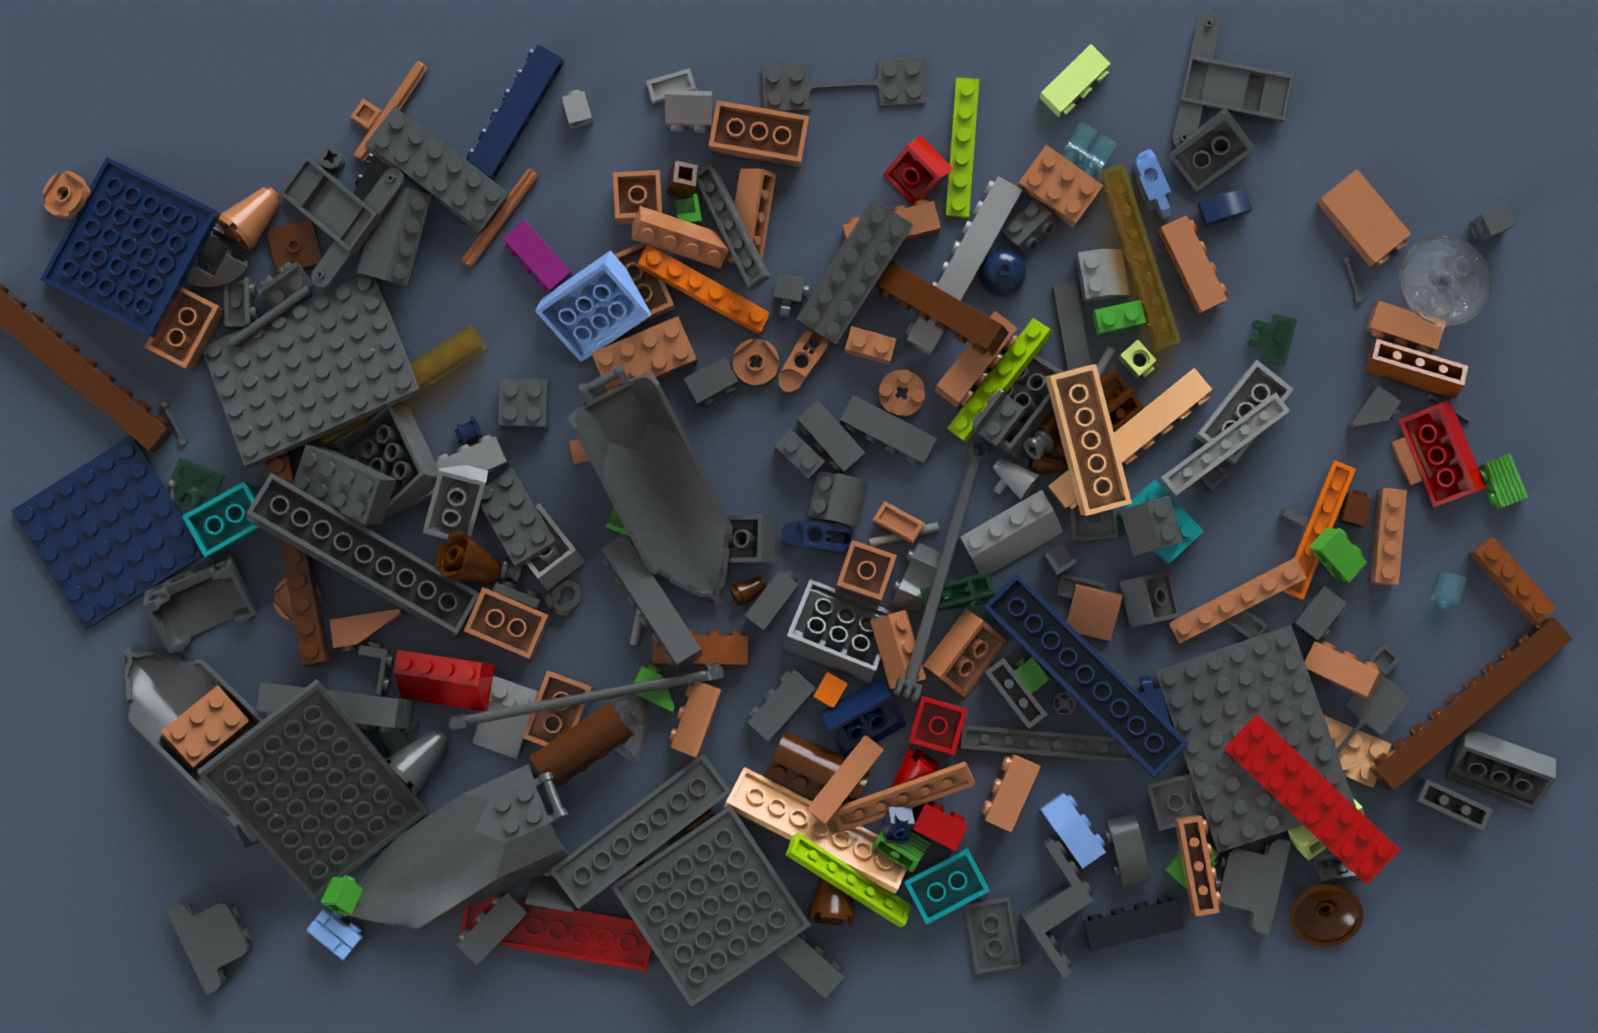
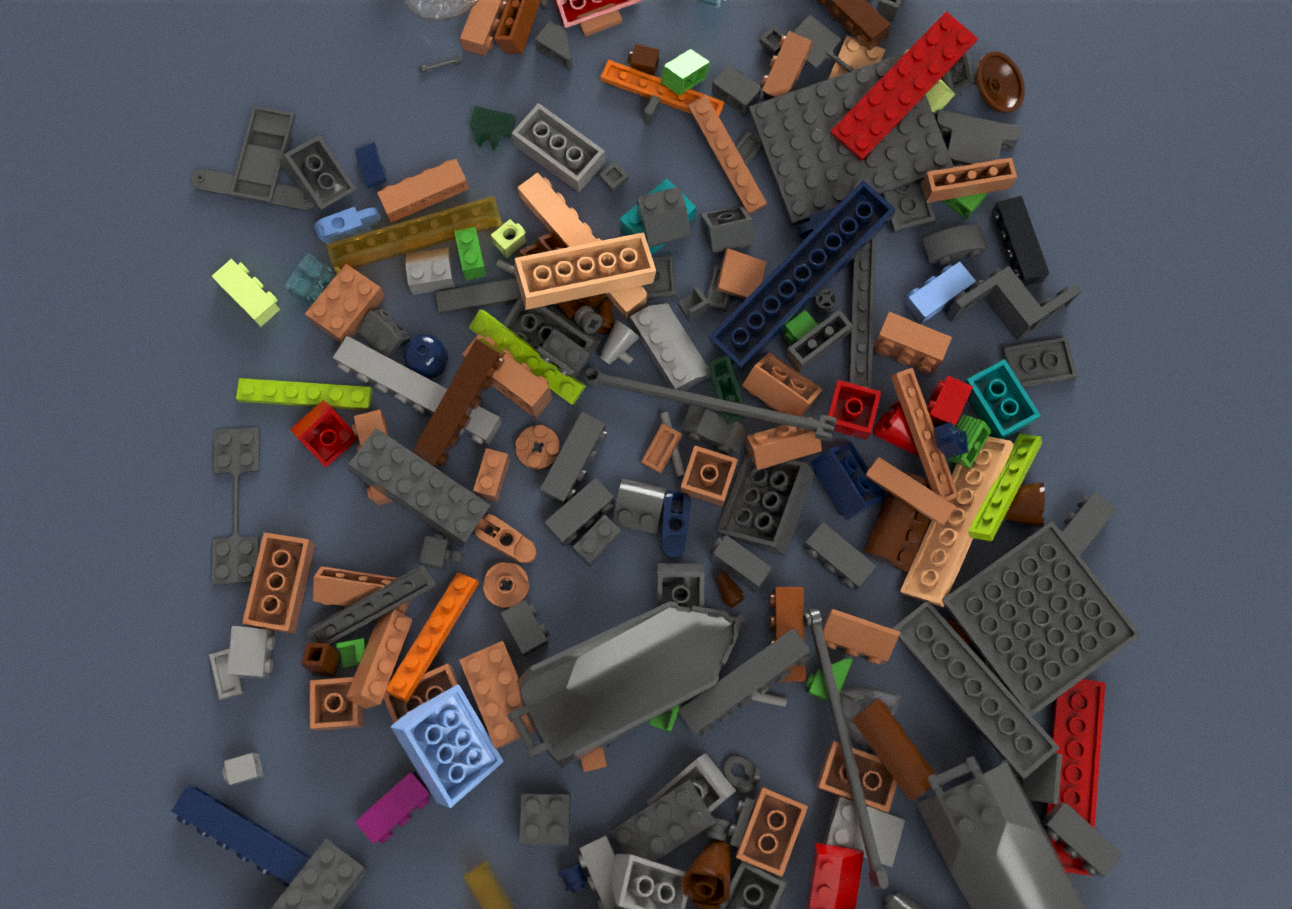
camera: 95 degrees left, 10 degrees down
(500, 217) = (352, 849): nougat axle -> none
(830, 690) = (823, 509): orange panel -> none
(1225, 444) = (589, 156): light grey plate -> none
(1364, 219) = (386, 52): nougat brick -> none
(1388, 537) = (668, 34): nougat brick -> none

